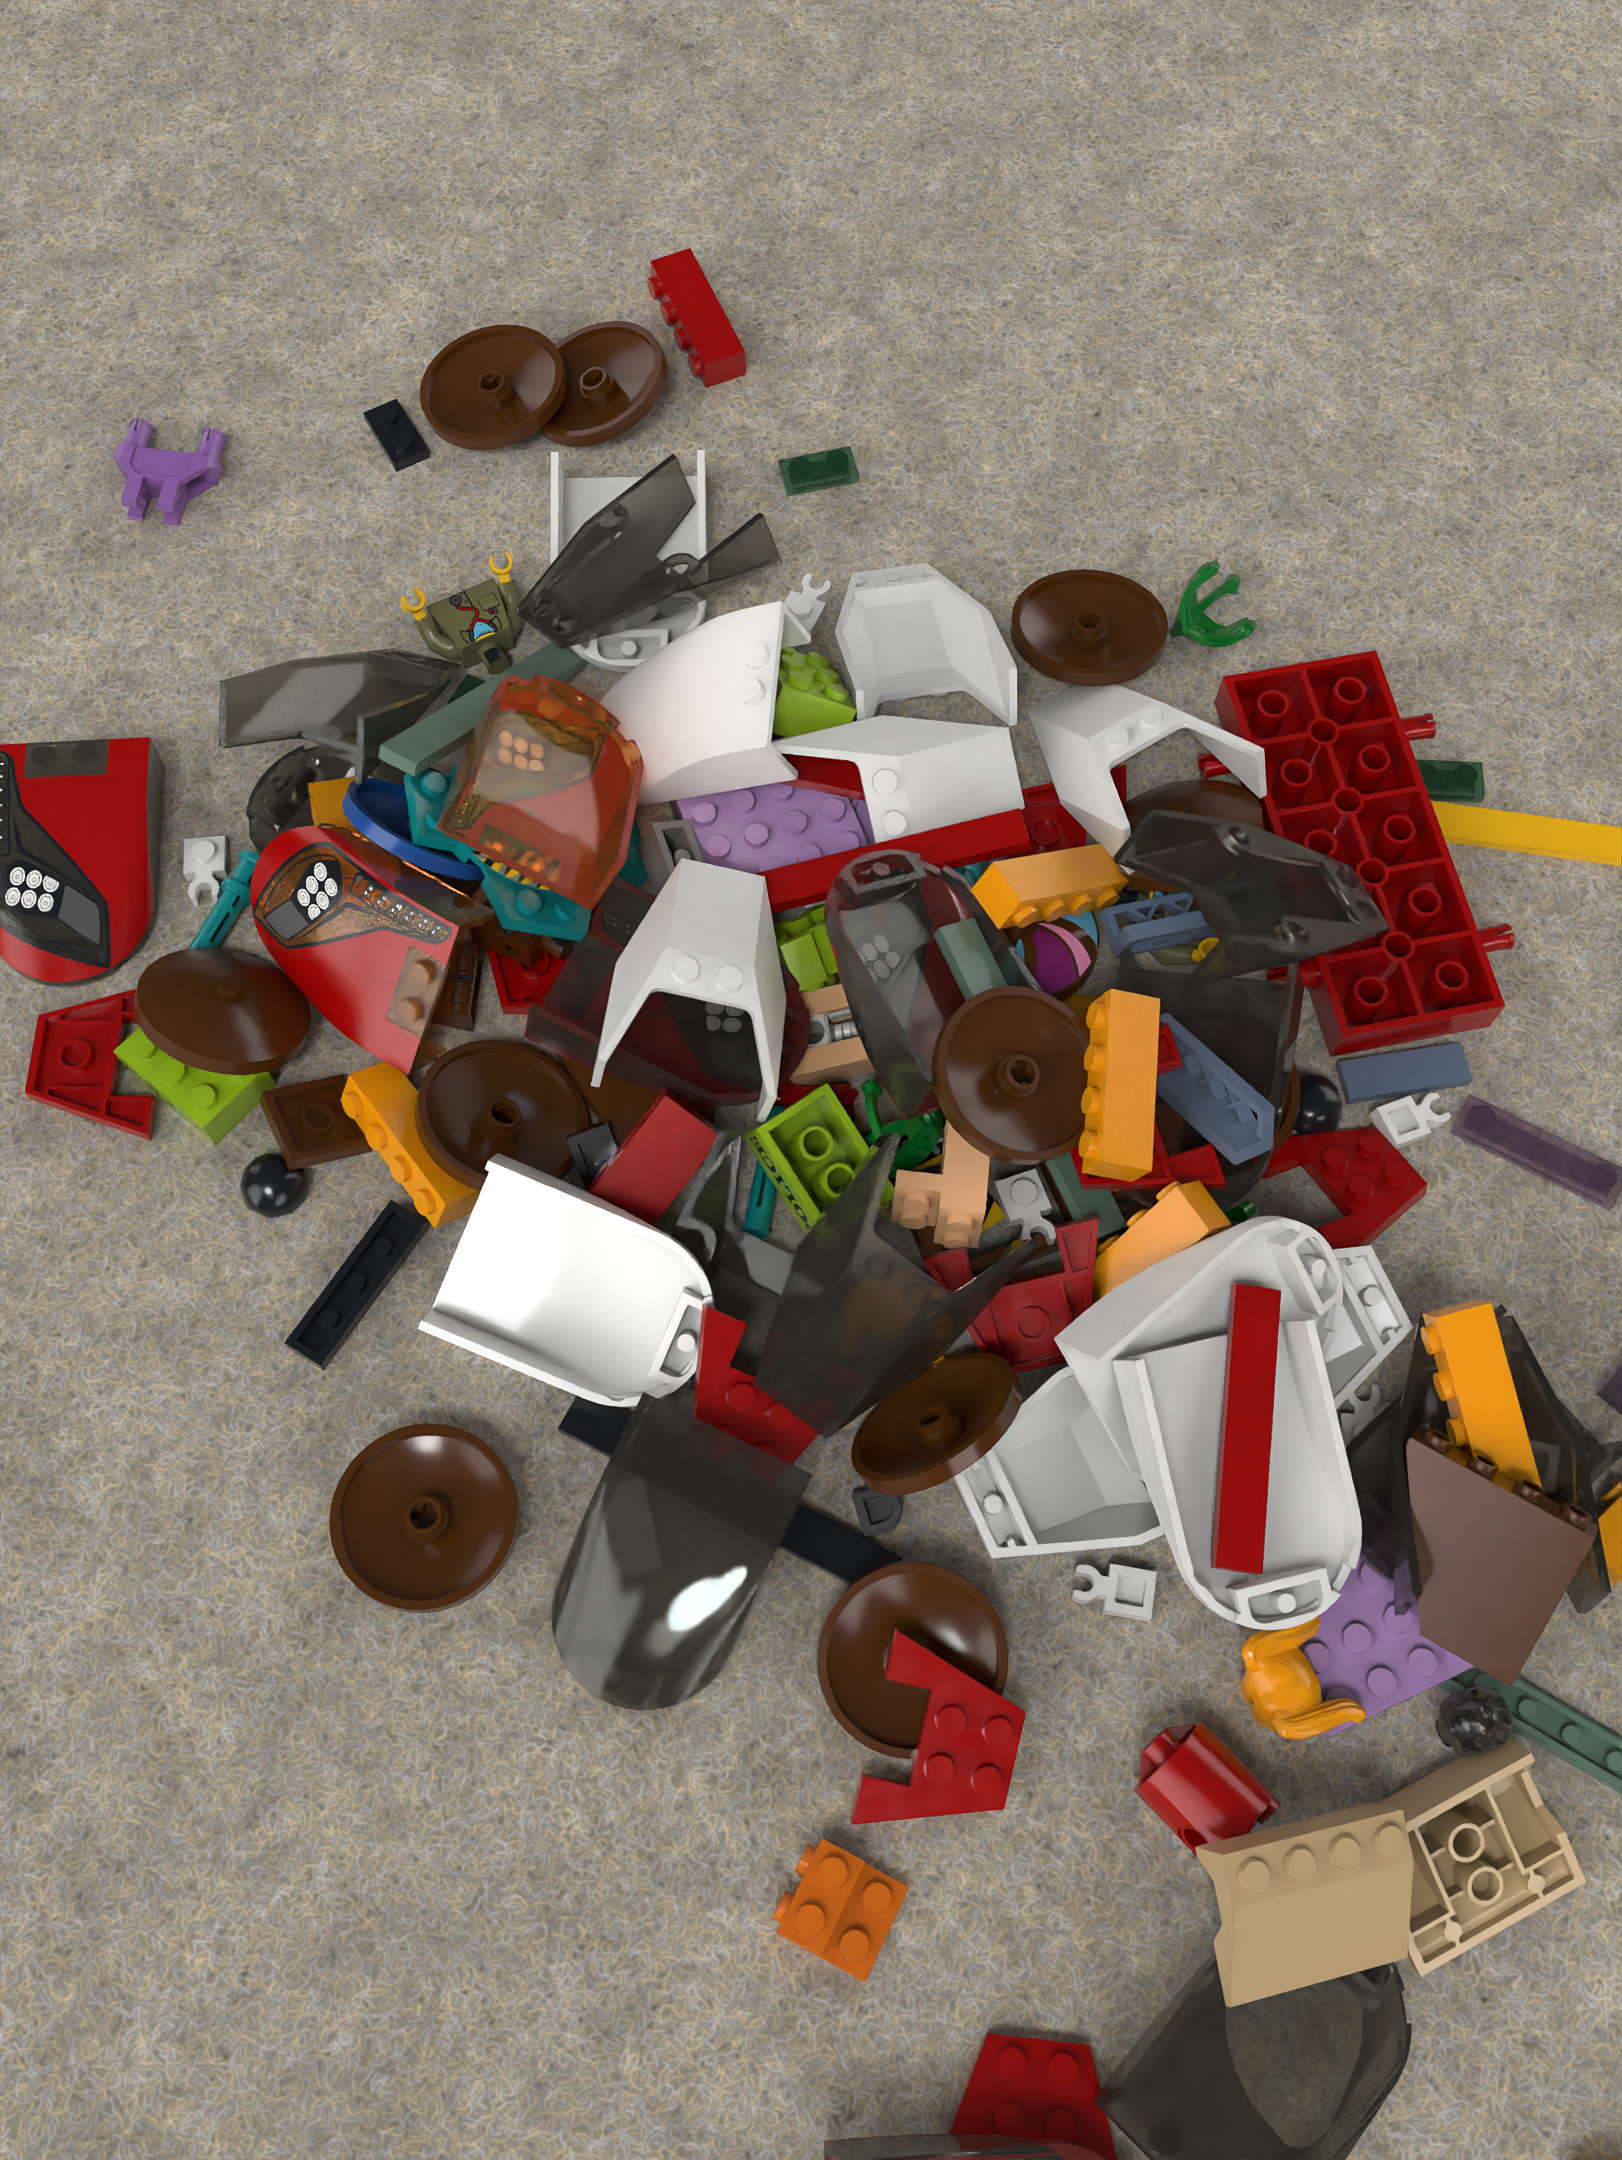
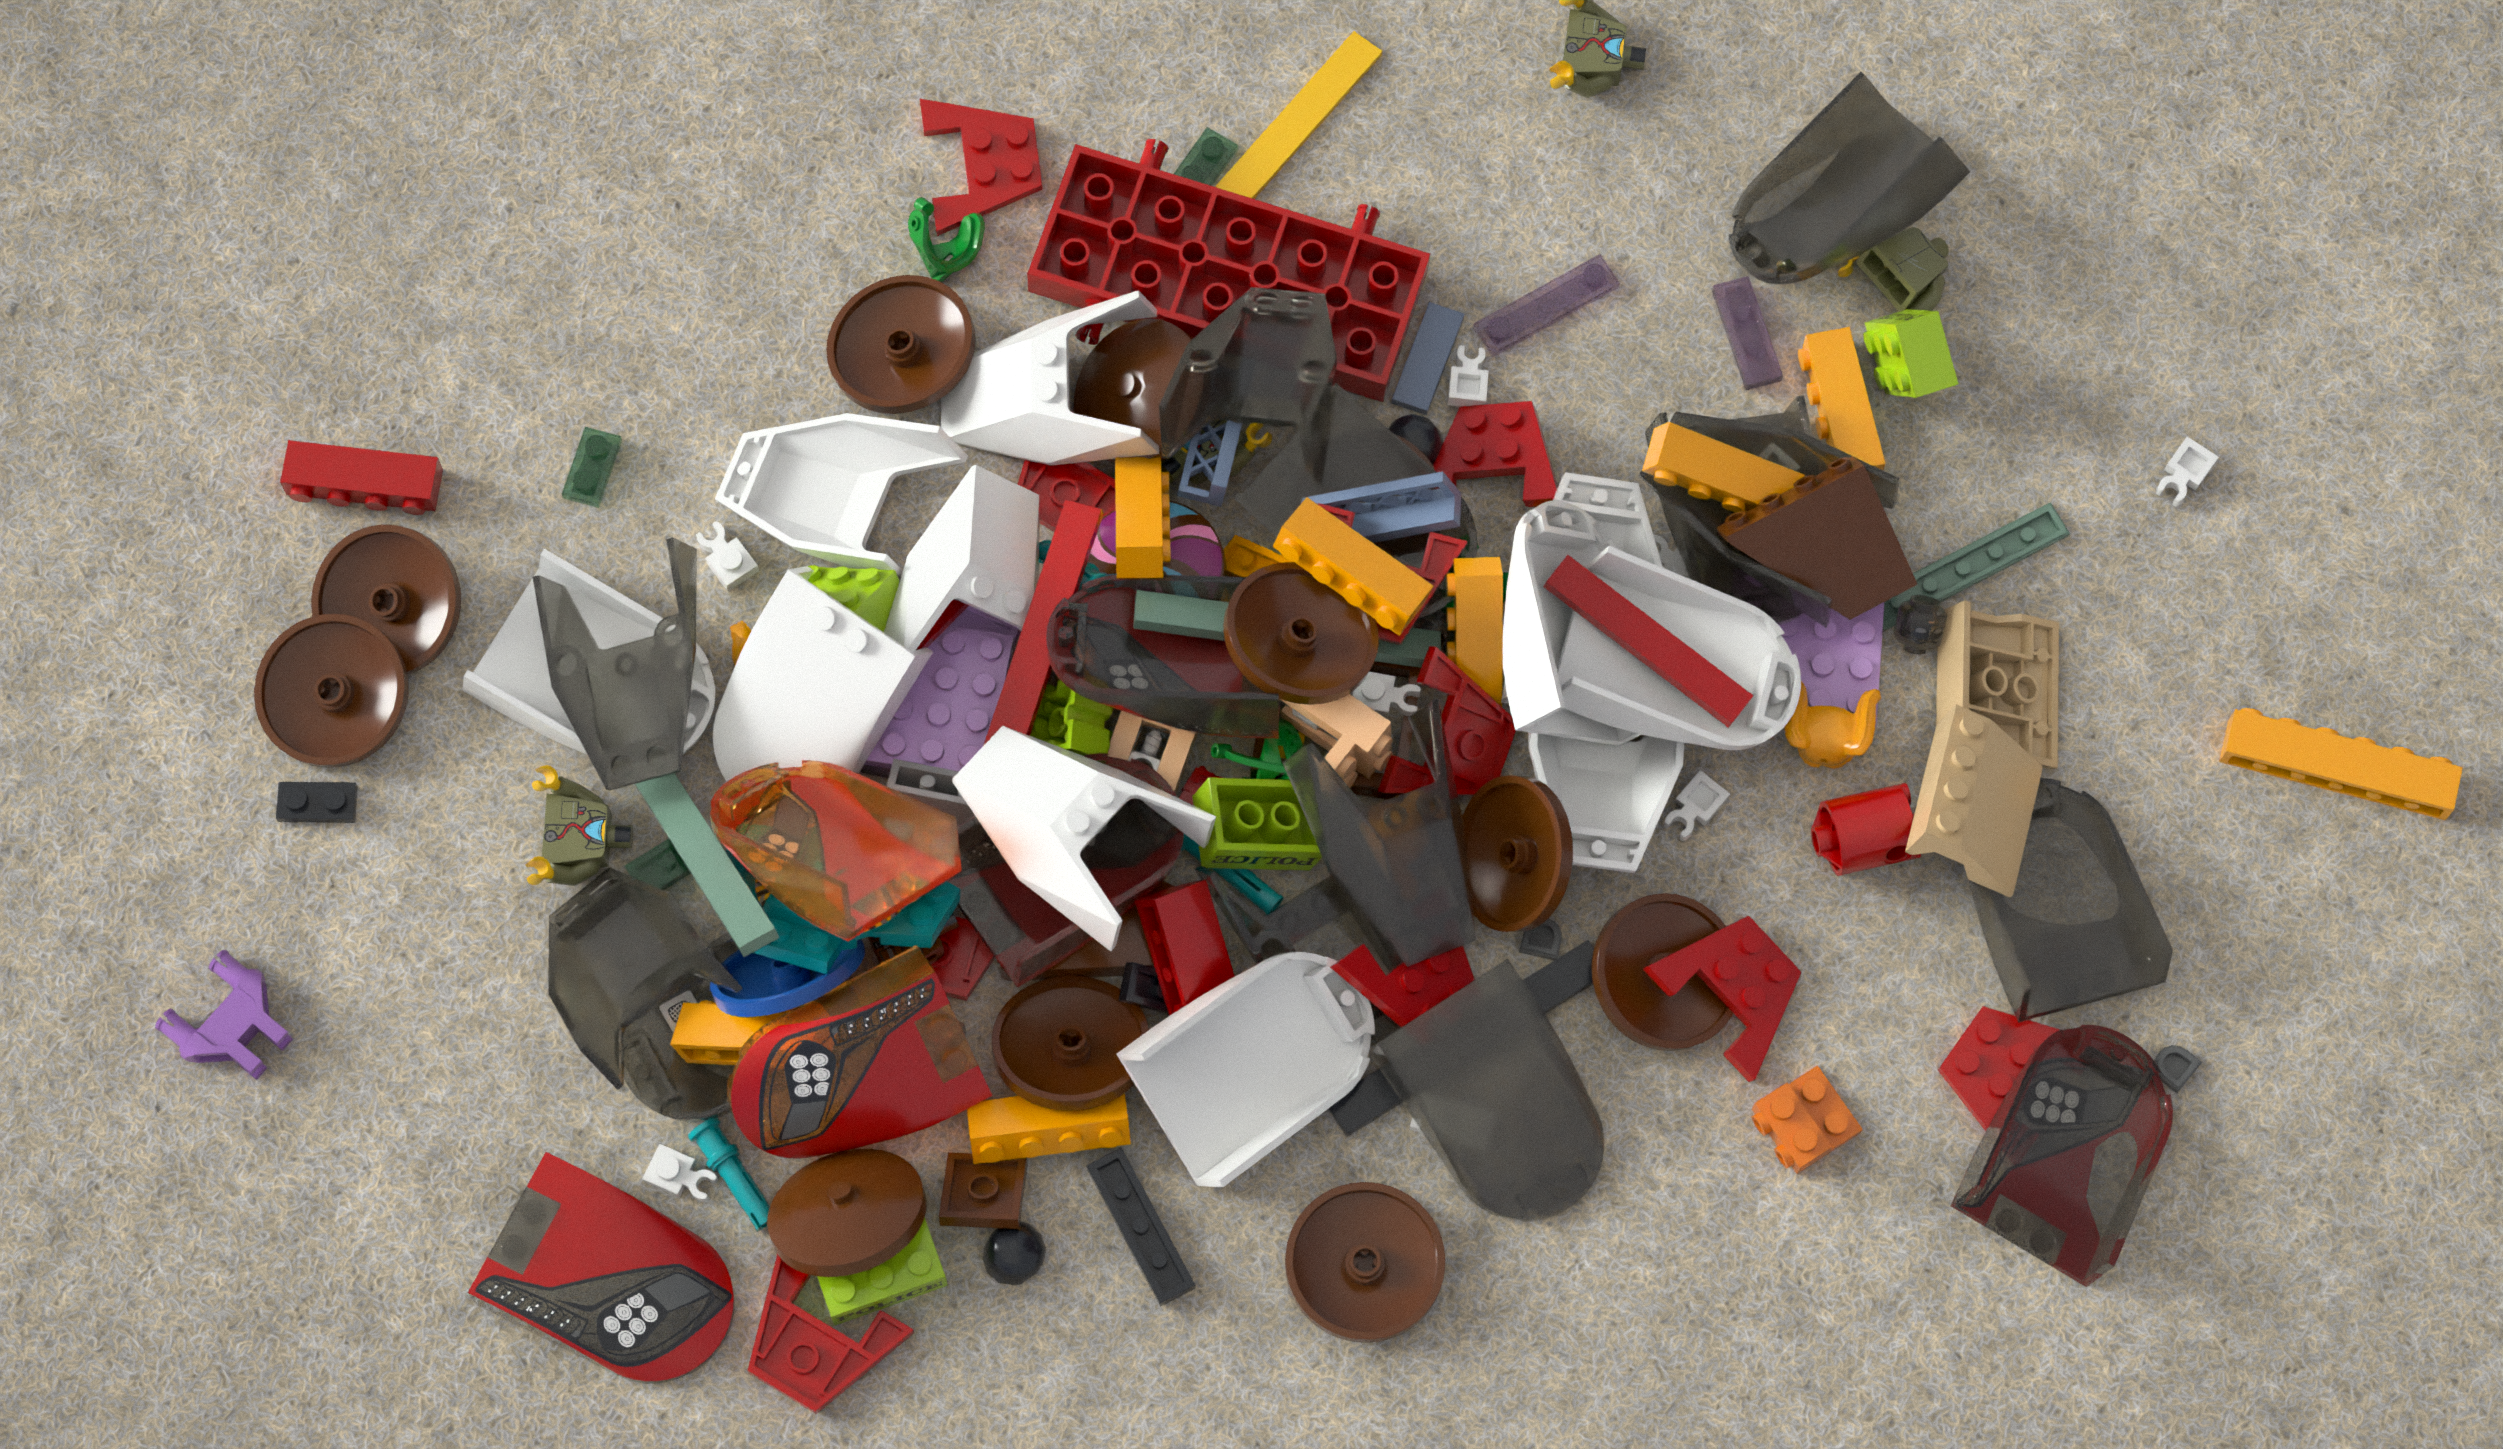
camera: 60 degrees left, 5 degrees up
(1320, 618) = (997, 156): none -> red wing

